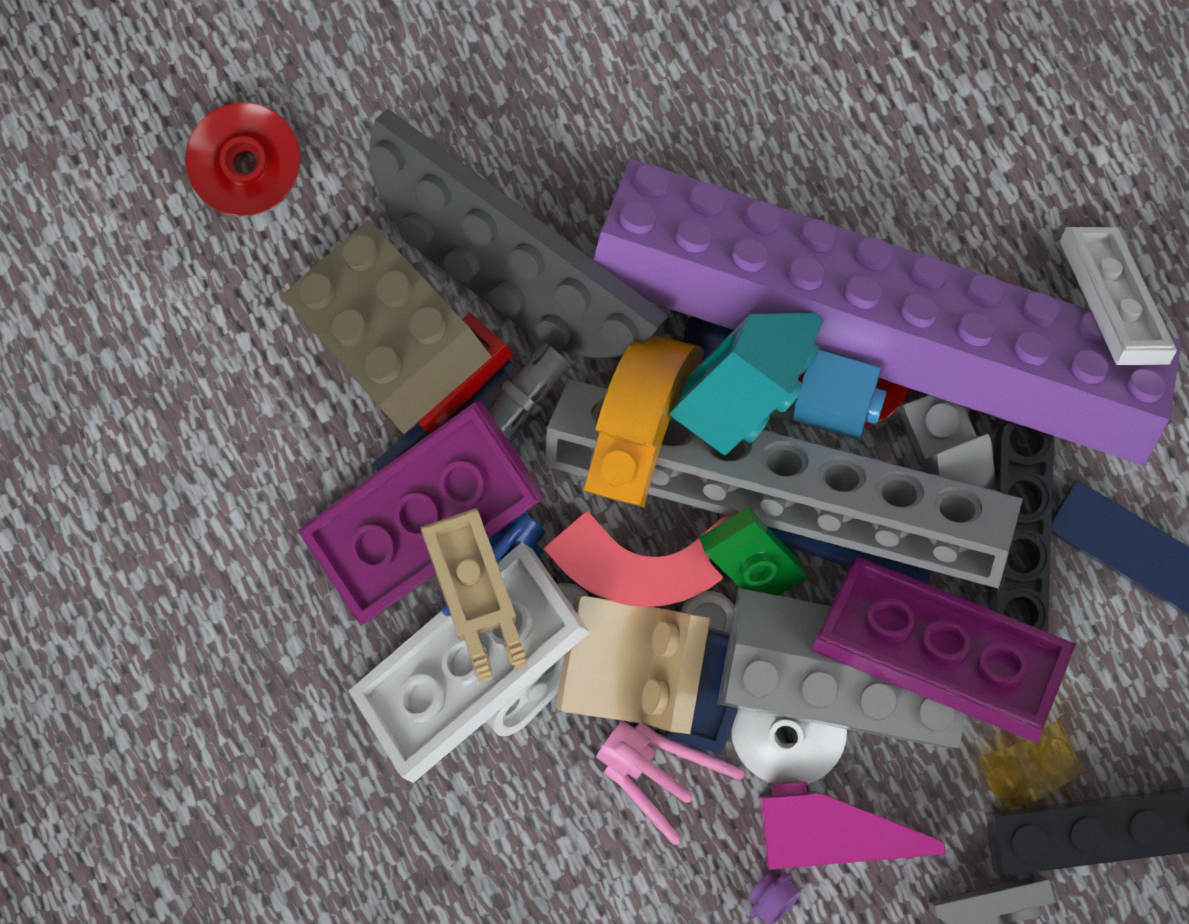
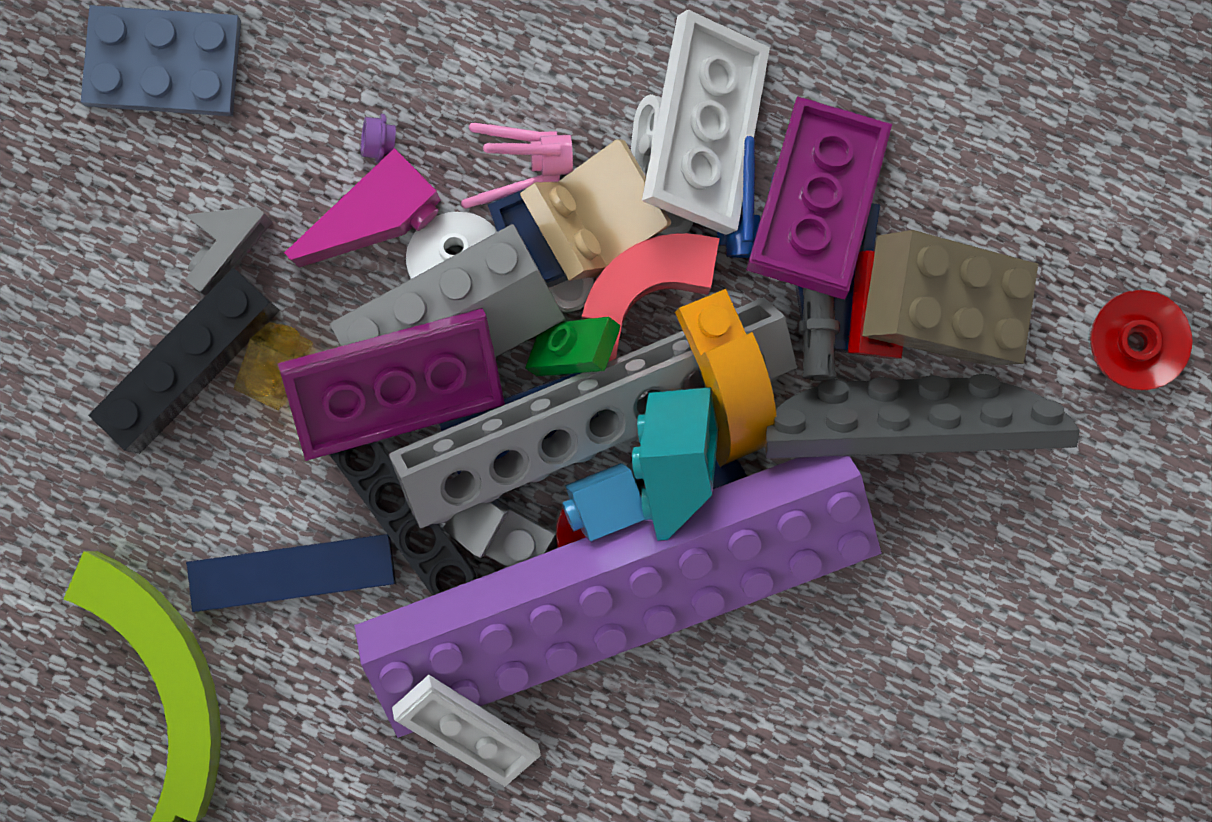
camera: 135 degrees right, 0 degrees up
(473, 587) = (745, 164): tan hinge -> none

